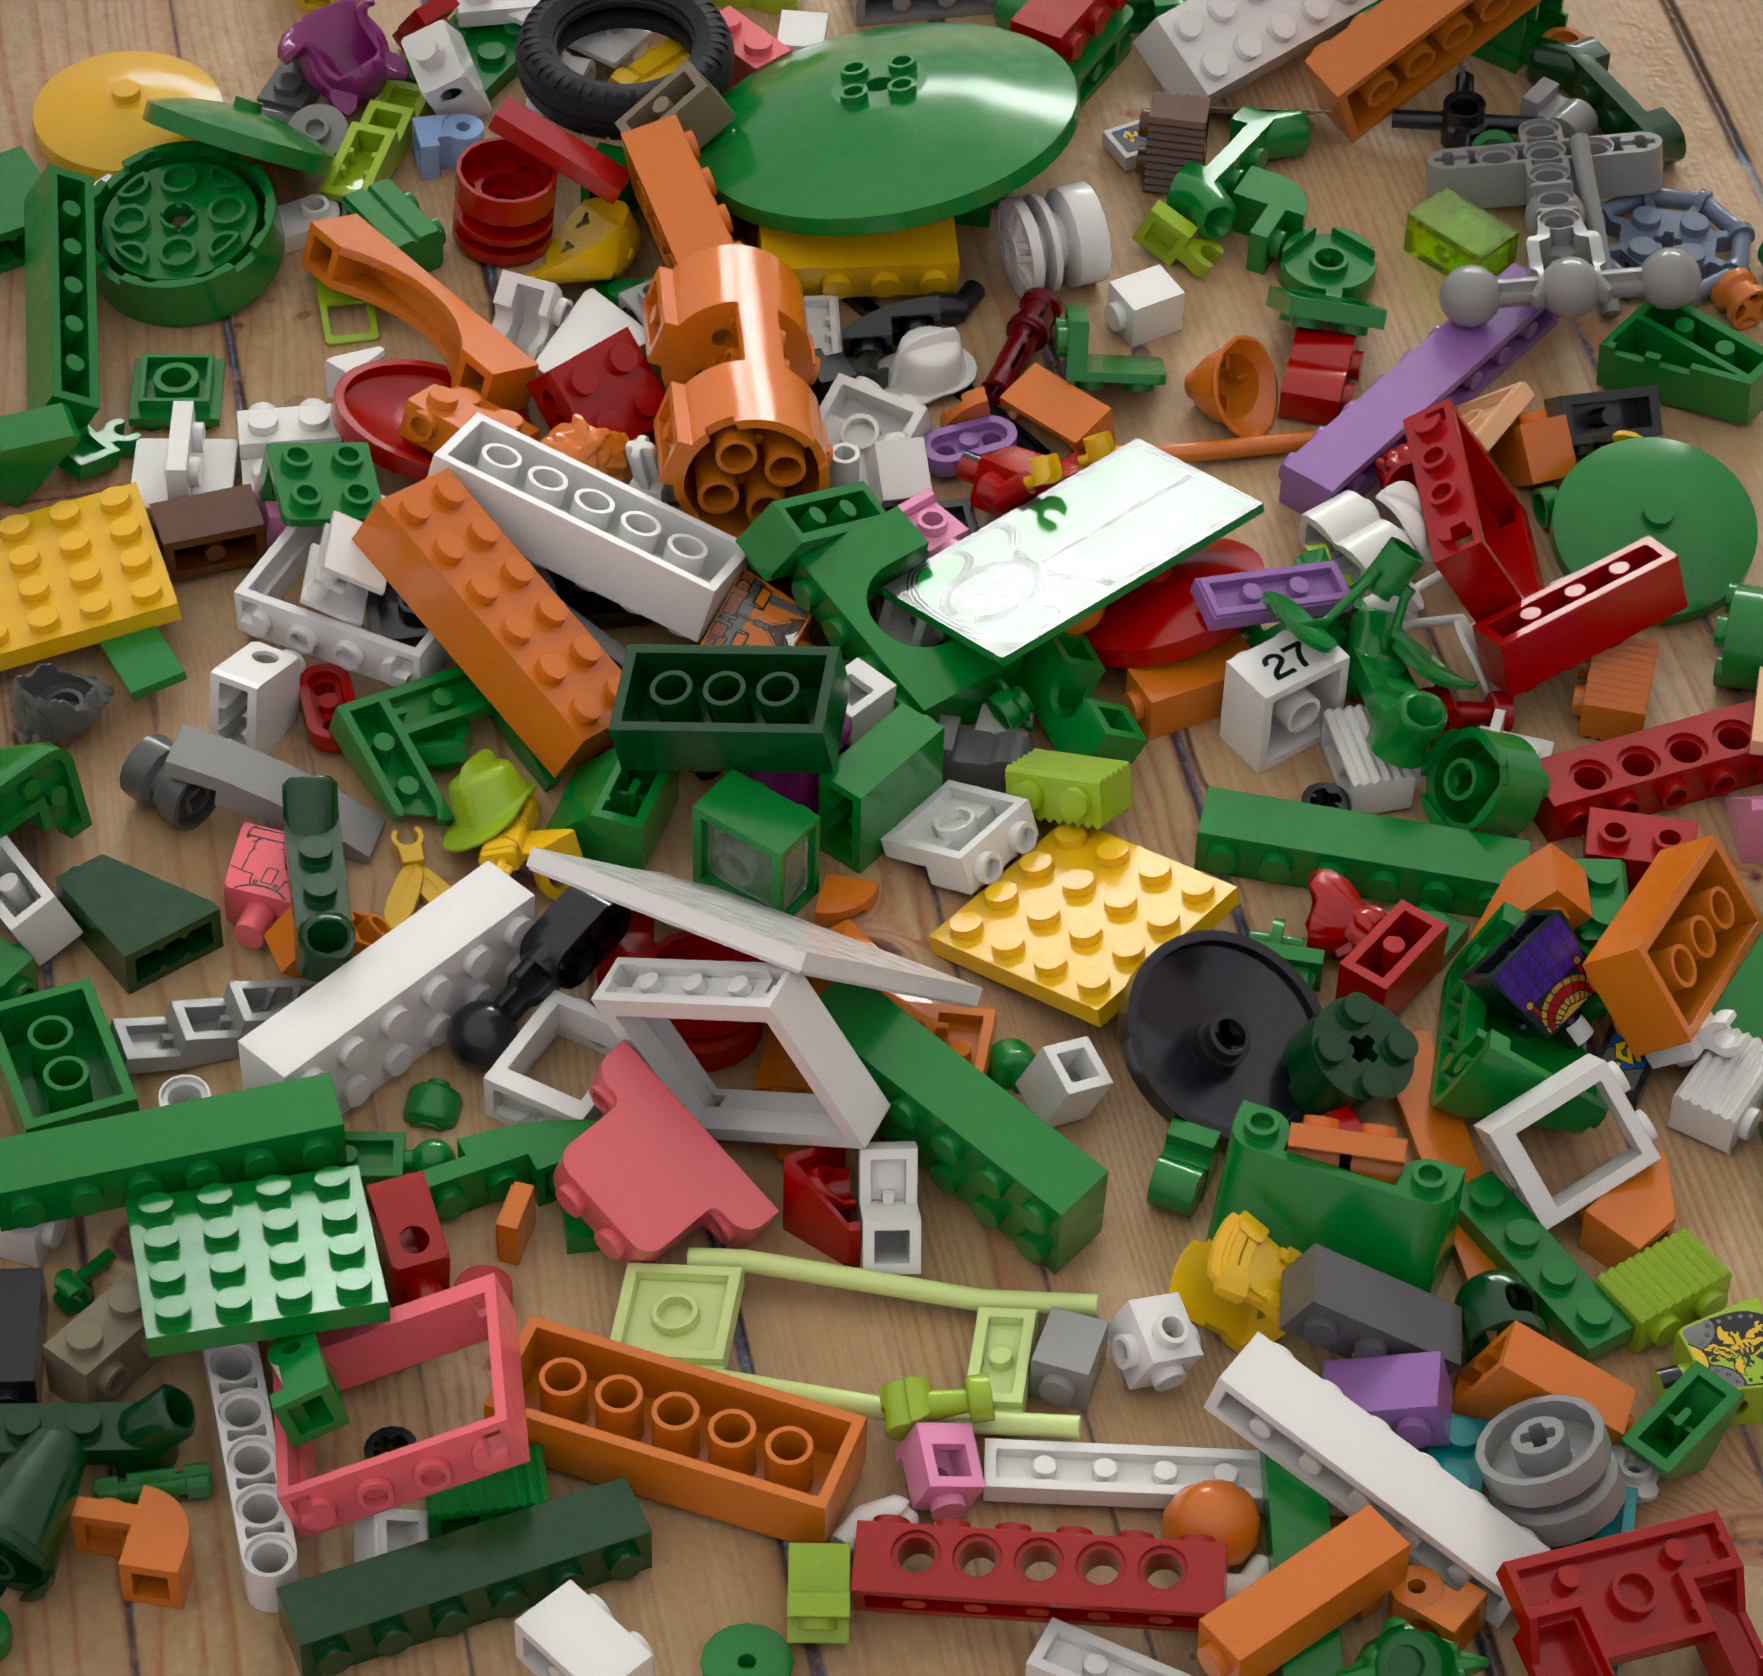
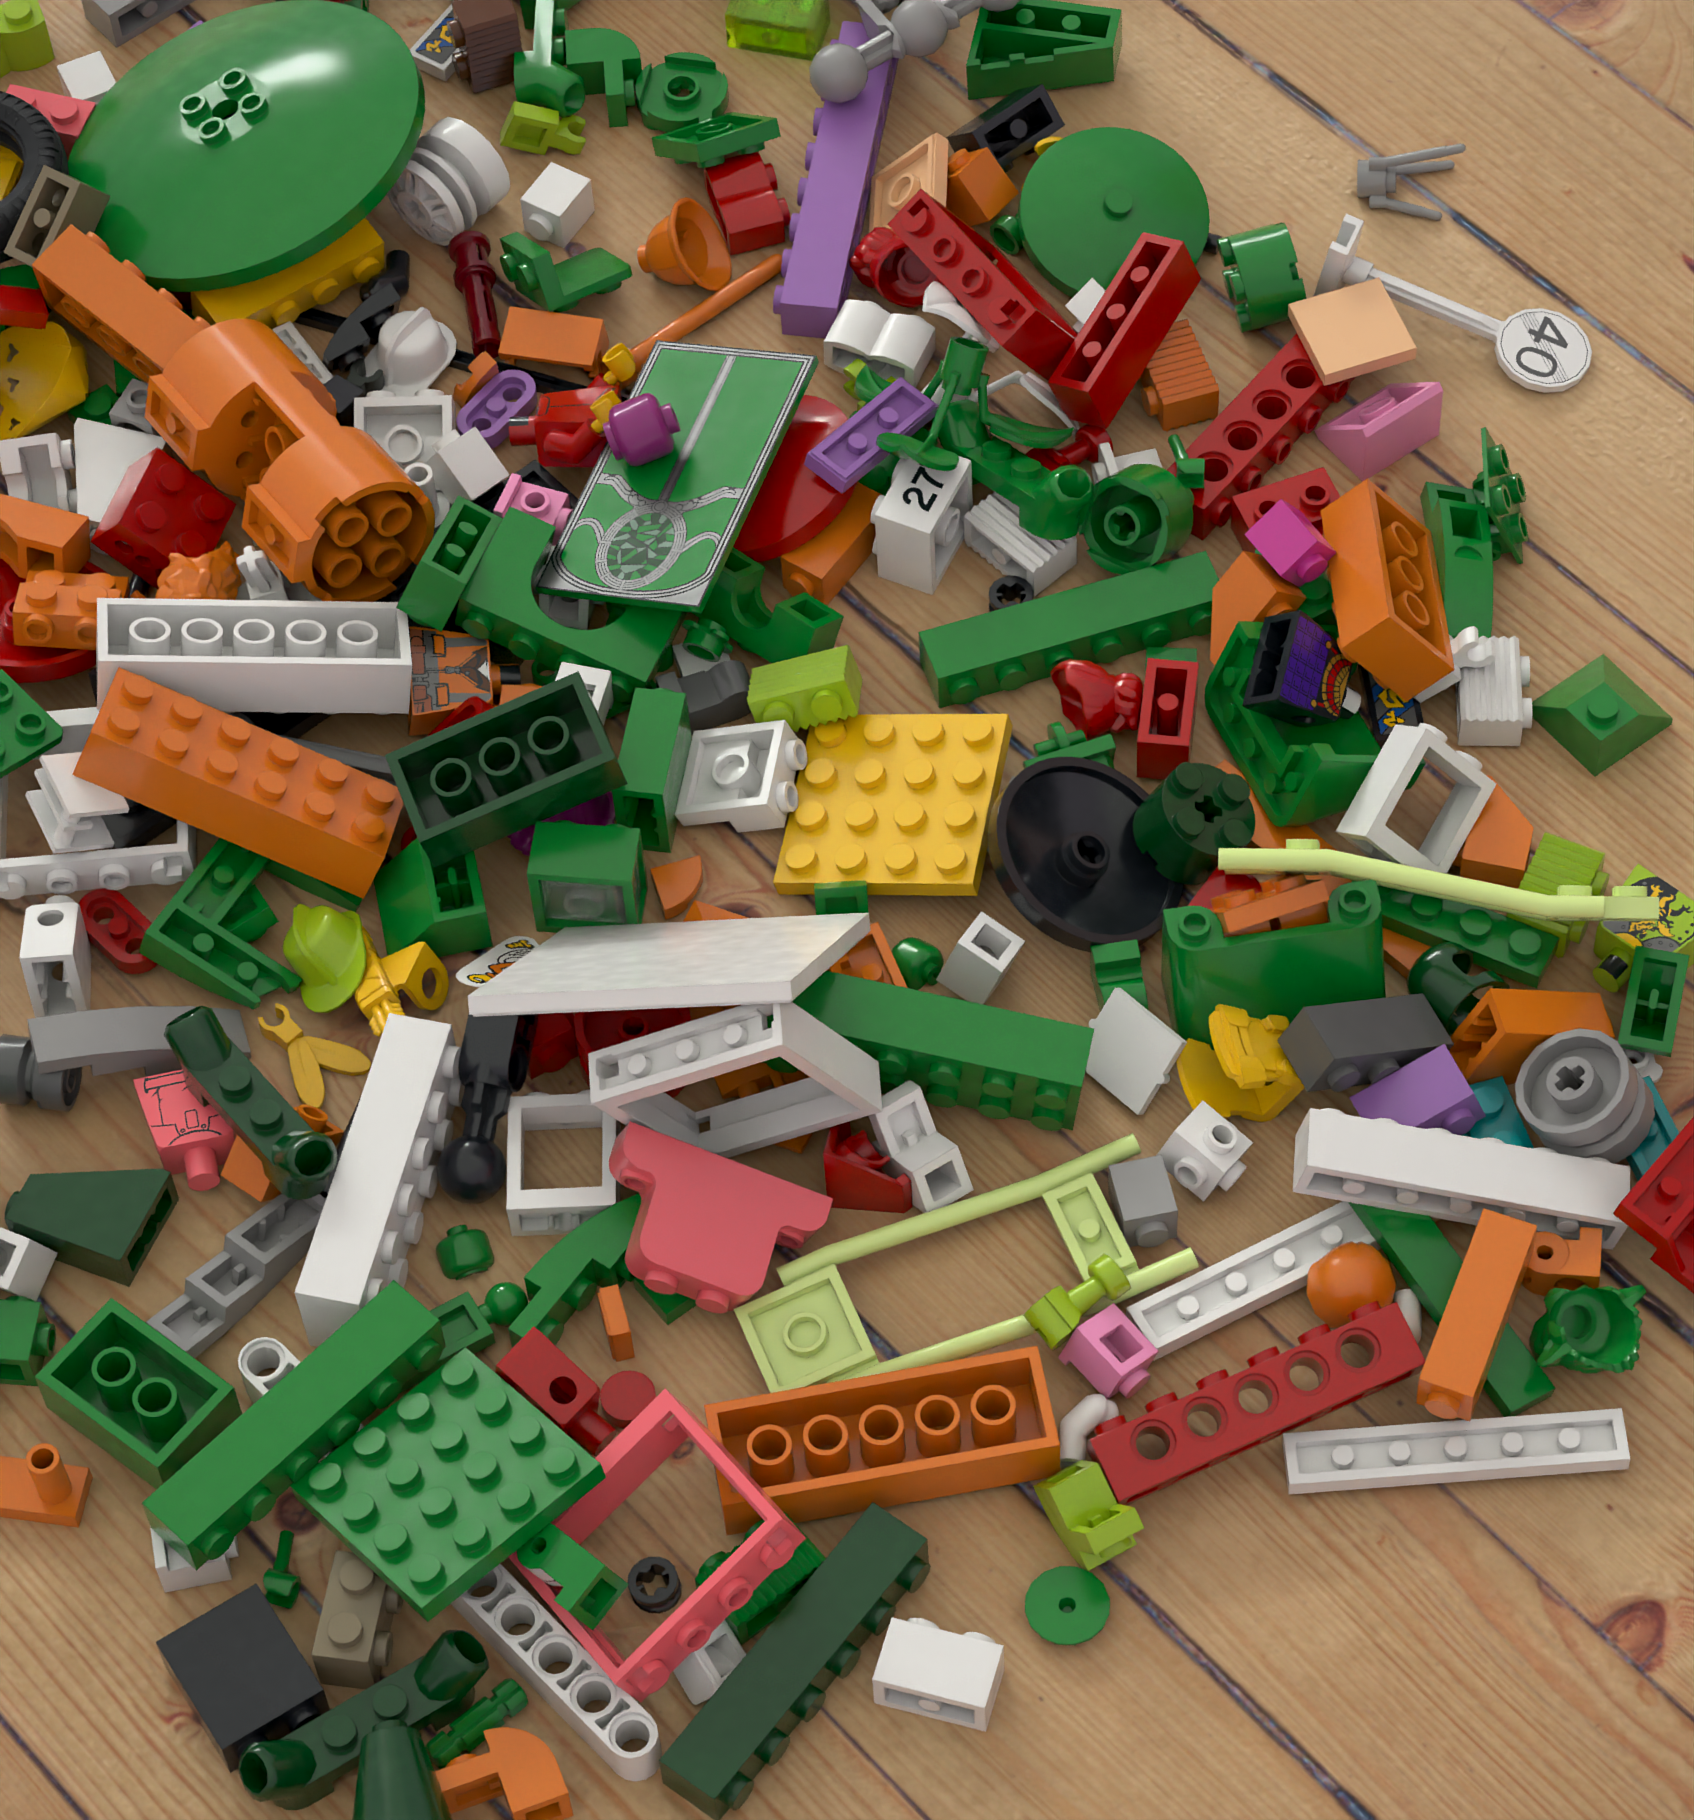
camera: 25 degrees left, 10 degrees up
(980, 973) = (841, 897): none -> green plate
(1057, 493) = (641, 429): none -> magenta head
(1148, 1225) = (1131, 1051): none -> white piece
(1563, 765) = (1189, 470): none -> green hand
(1601, 857) = (1291, 544): none -> dark pink brick
(1633, 1277) = (1569, 904): none -> yellowish green plate

